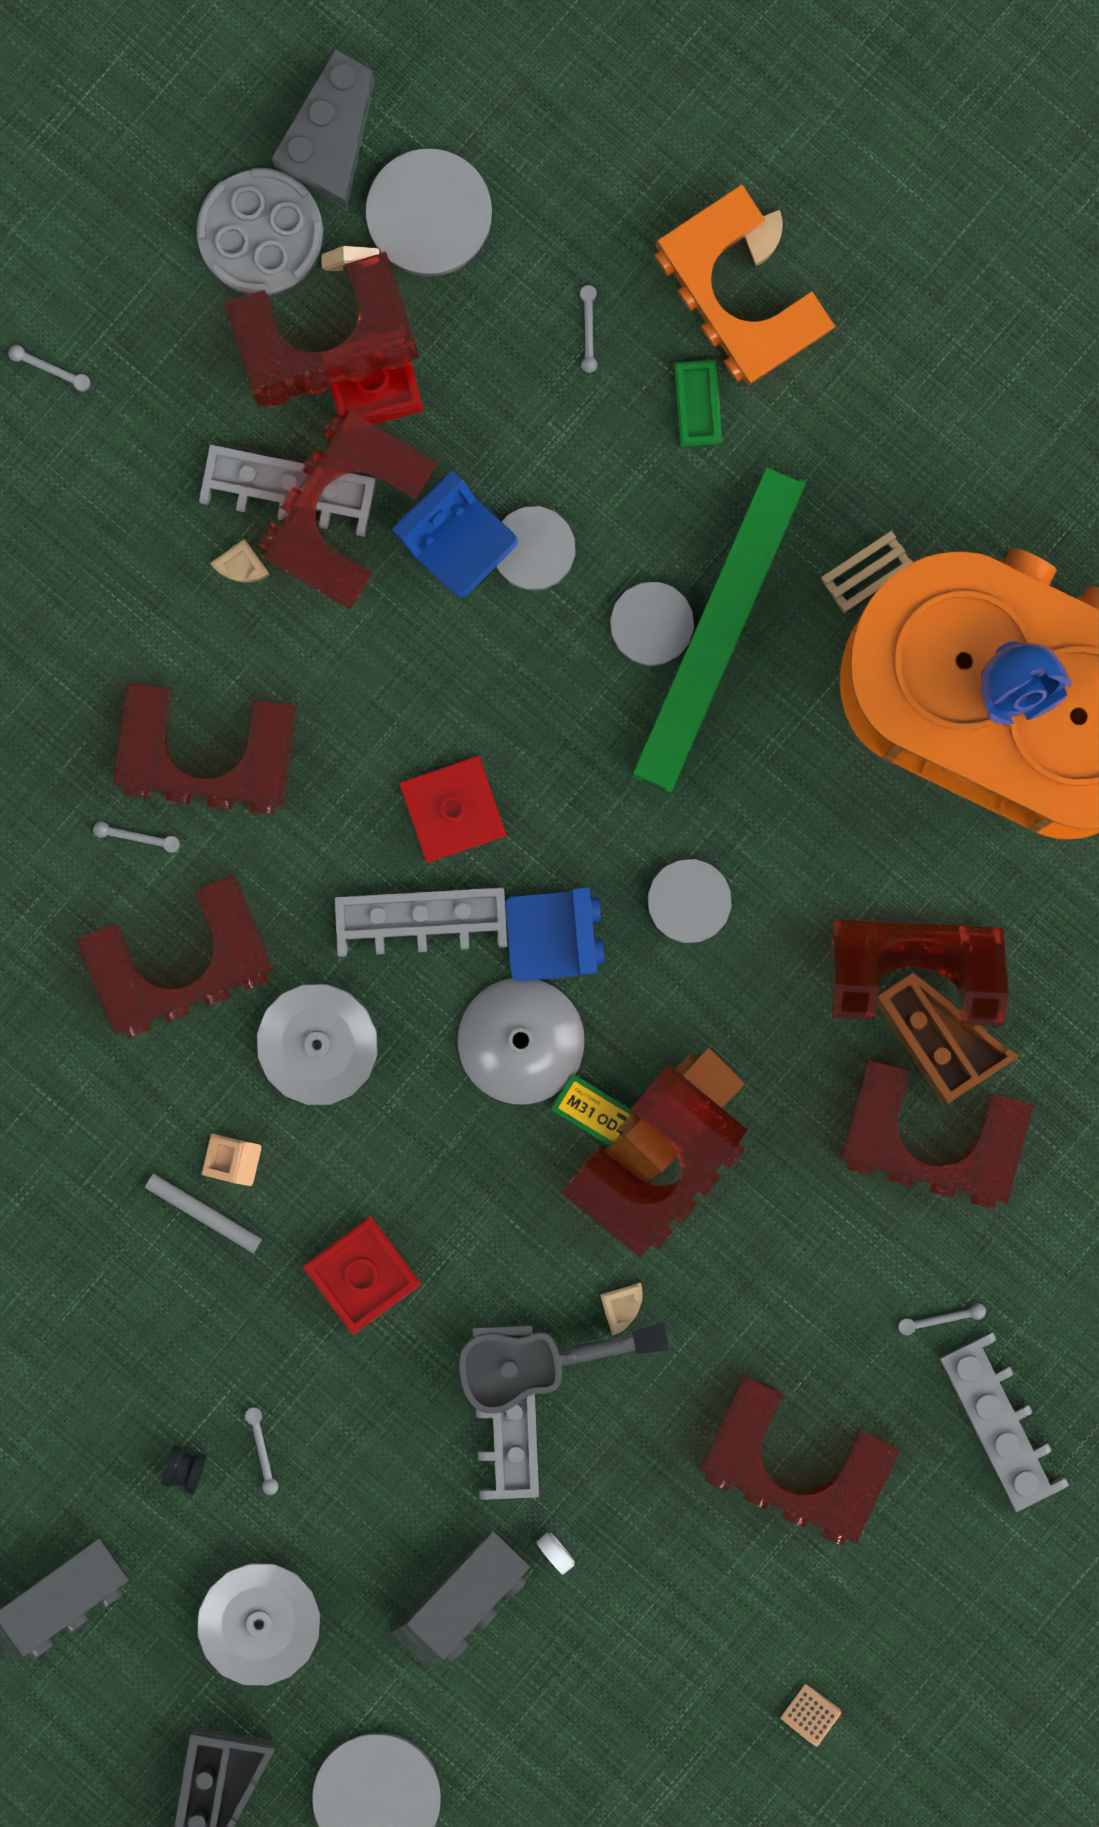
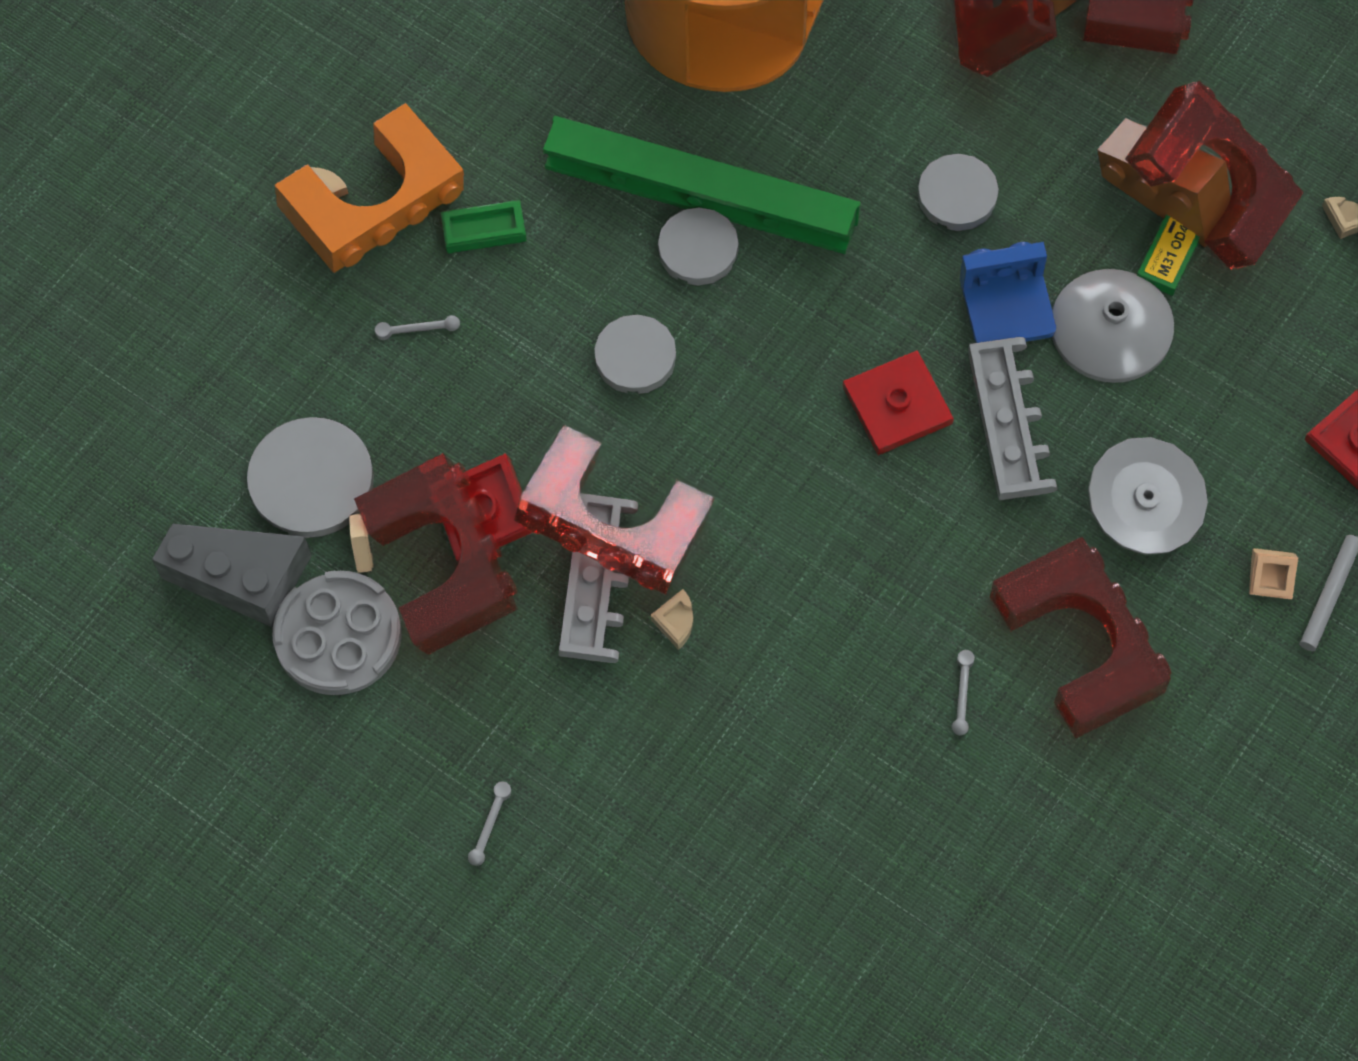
camera: 95 degrees left, 20 degrees down
(147, 766) = (890, 576): clear red arch -> none
(455, 536) = (634, 413): blue bracket -> none
(836, 592) = (612, 50): tan tile -> none

